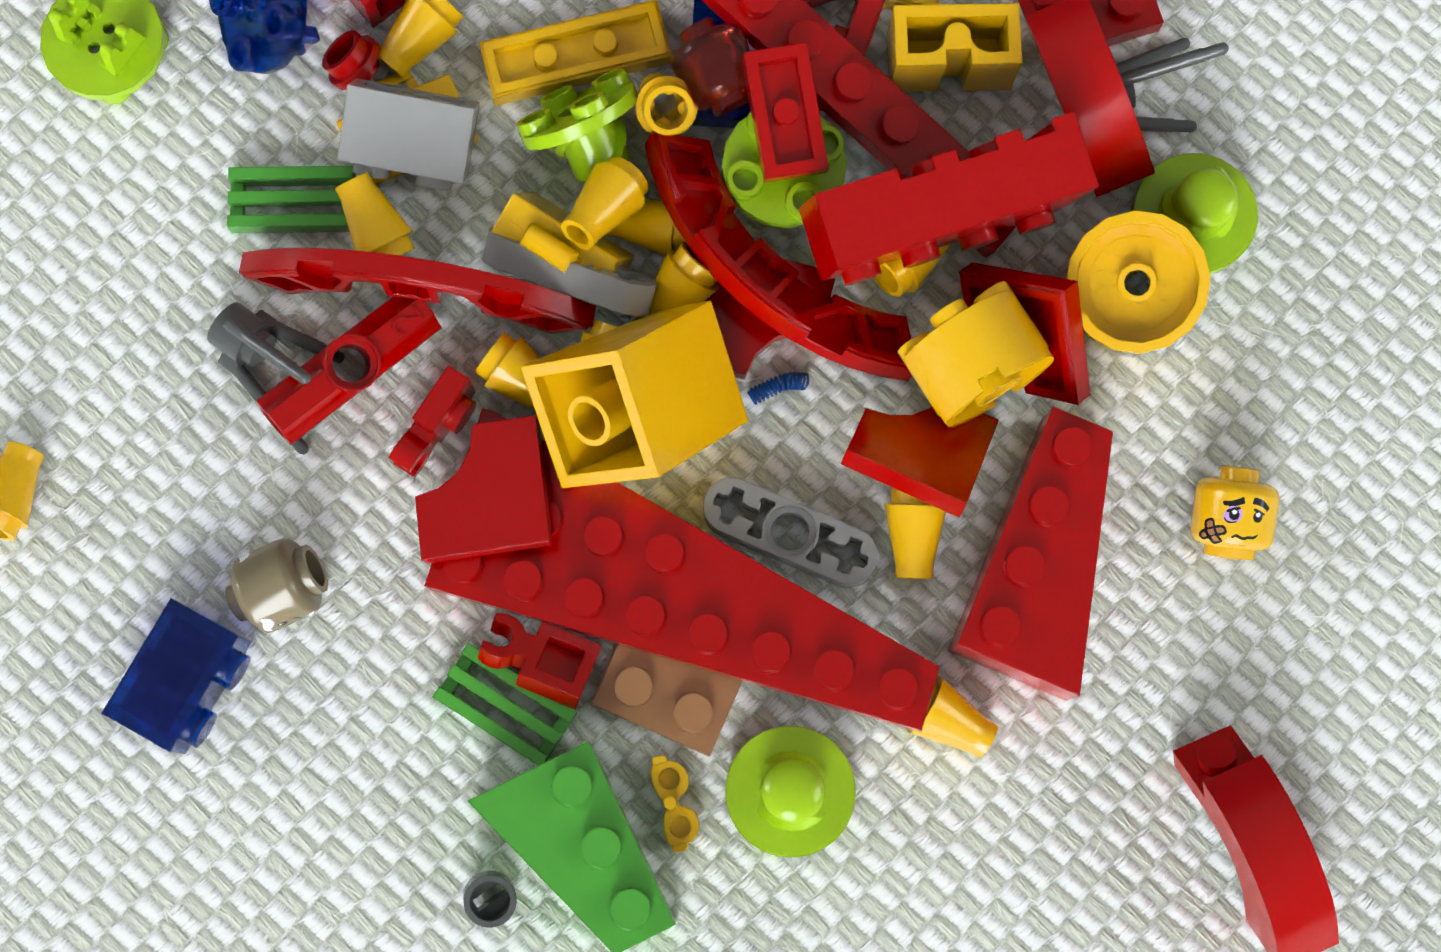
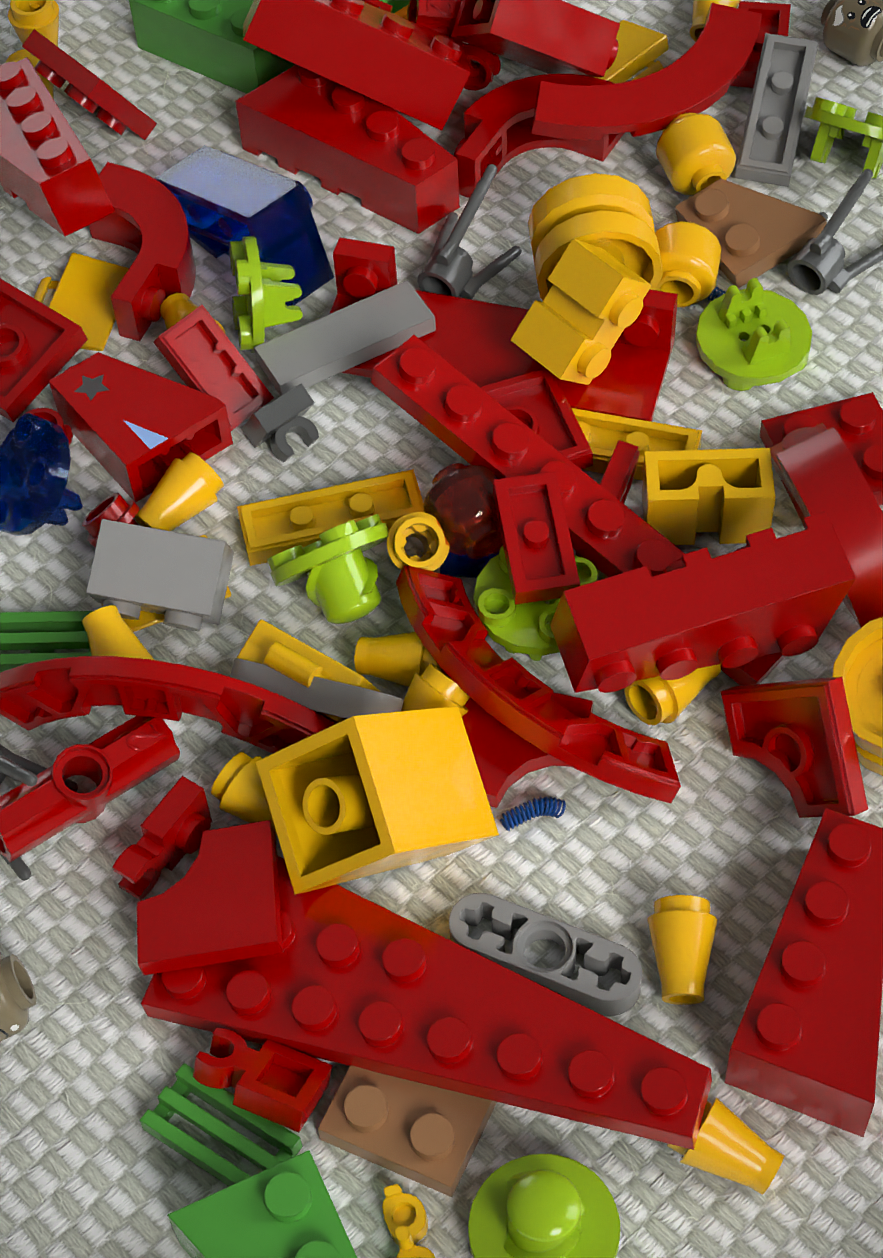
camera: 10 degrees right, 25 degrees down
(606, 200) = (355, 621): yellow cone -> none
(922, 455) = (694, 863): red tile -> none
(976, 354) = (740, 757): yellow brick -> none

